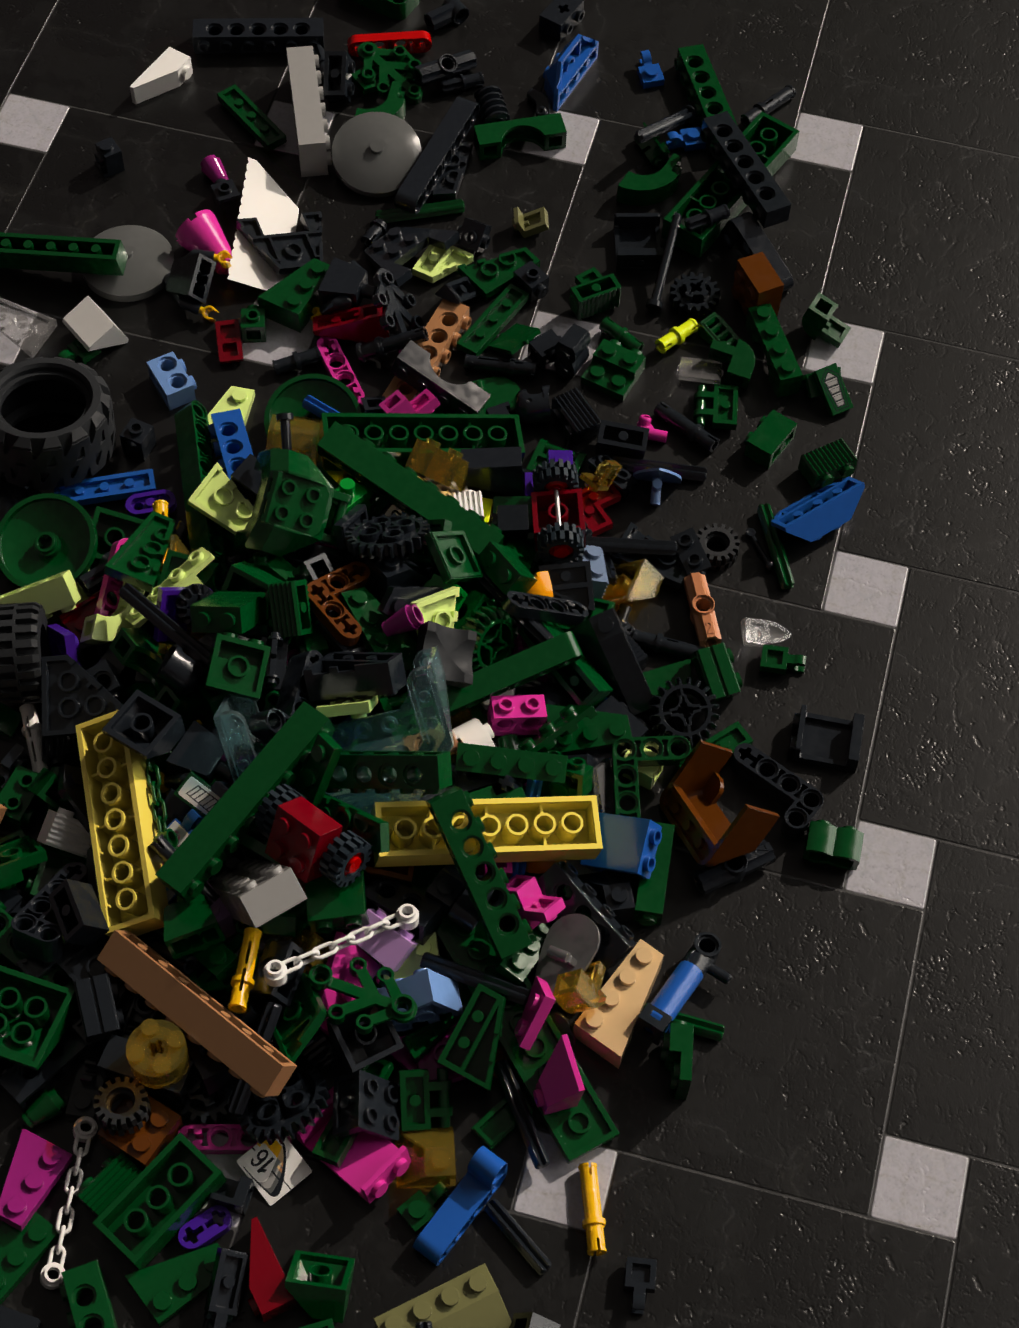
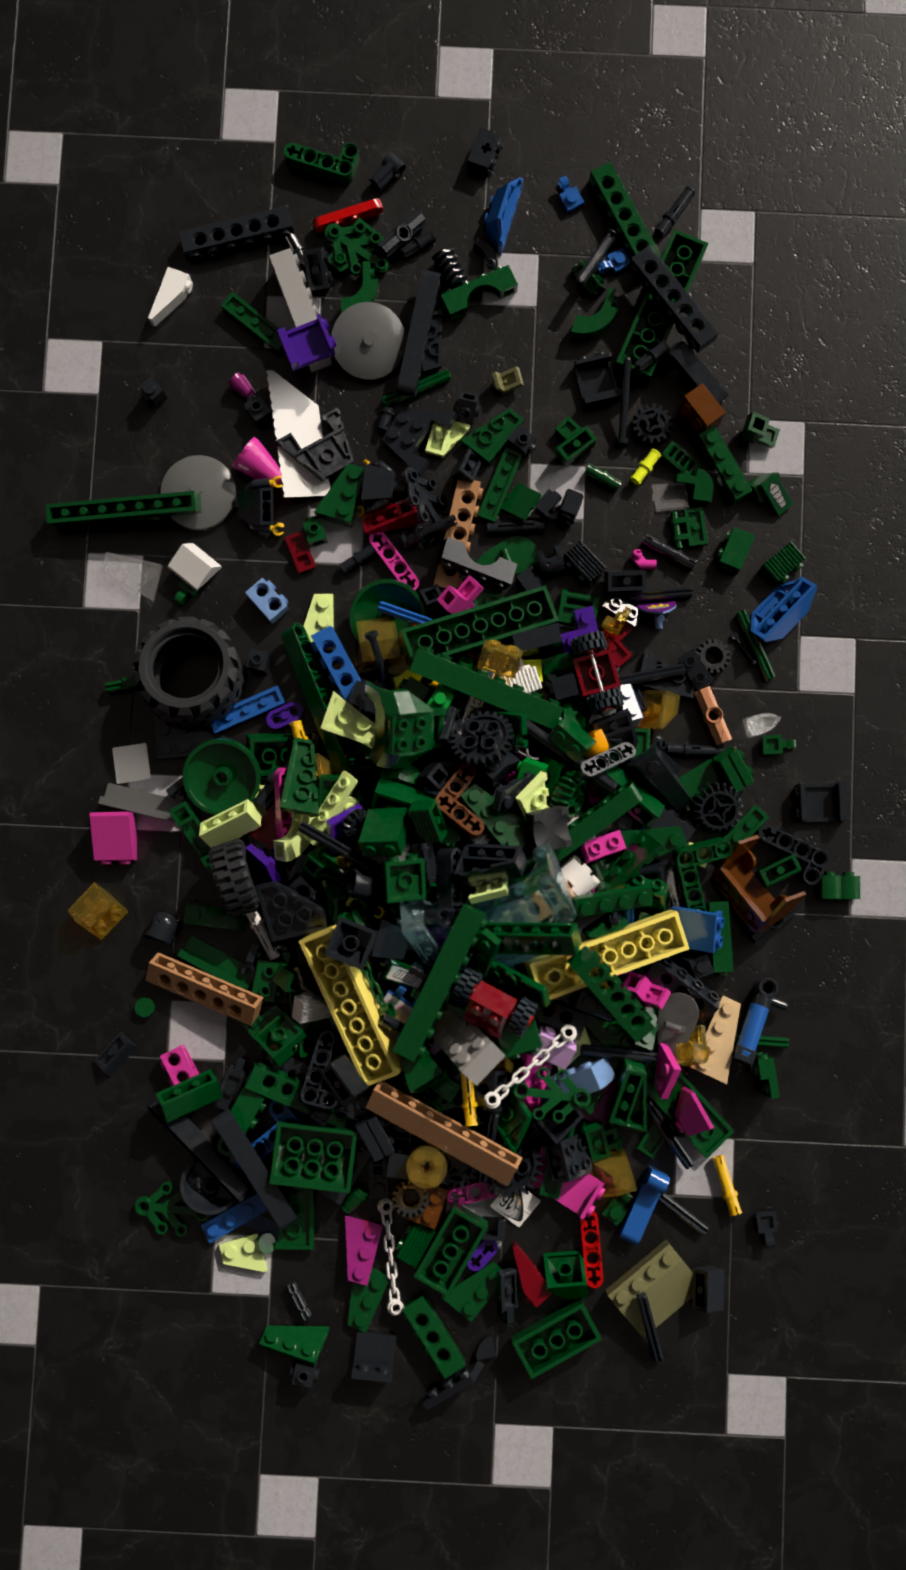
camera: 10 degrees left, 25 degrees up
(302, 129) = (307, 343): none -> dark purple panel
(368, 1256) = (592, 1248): none -> red beam
(404, 620) = (515, 814): magenta cone -> none
(453, 556) = (534, 745): dark green plate -> none
(614, 369) = (603, 510): dark green plate -> none
(762, 796) = (778, 870): none -> dark green brick

